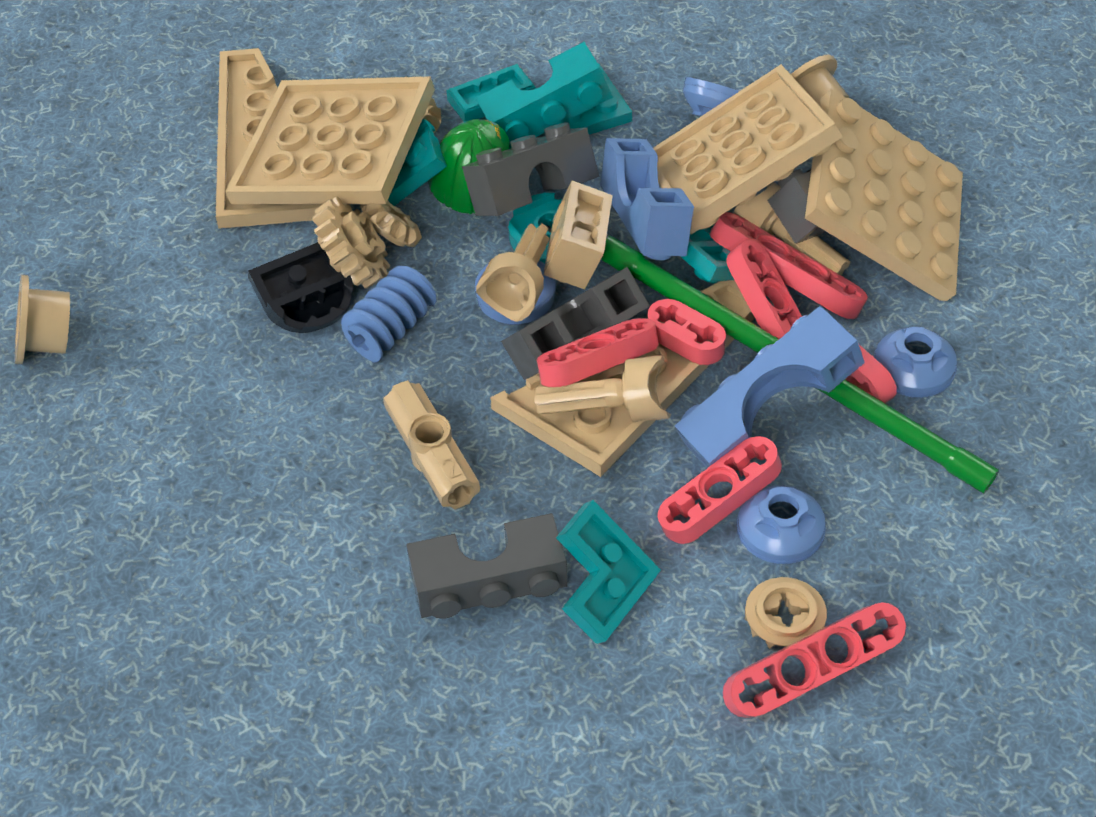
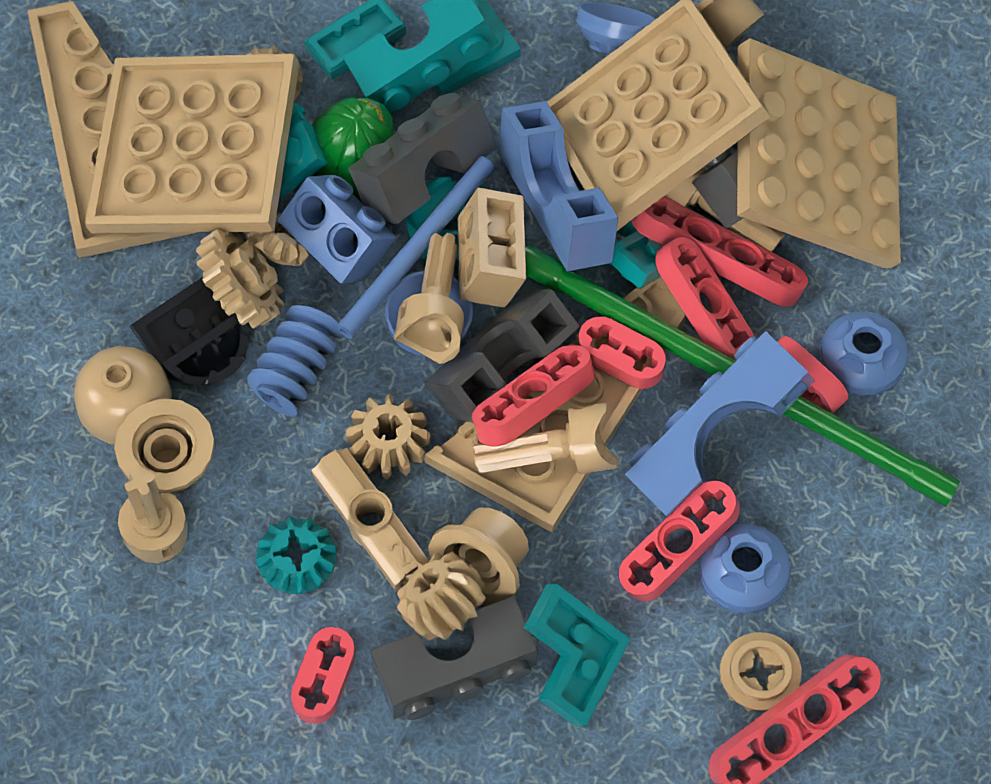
camera: 10 degrees left, 15 degrees up
(227, 418) = (151, 521): none -> tan piece
(229, 327) = (115, 385): none -> tan cylinder
(254, 367) = (168, 441): none -> tan piece
(352, 565) = (312, 670): none -> coral beam
(374, 475) = (315, 565): none -> teal gear
(446, 218) = (331, 237): none -> medium blue brick
(460, 380) = (392, 453): none -> tan gear
(481, 504) = (441, 596): none -> tan gear
(498, 245) = (414, 247): none -> medium blue piece
(525, 477) = (491, 545): none -> tan piece

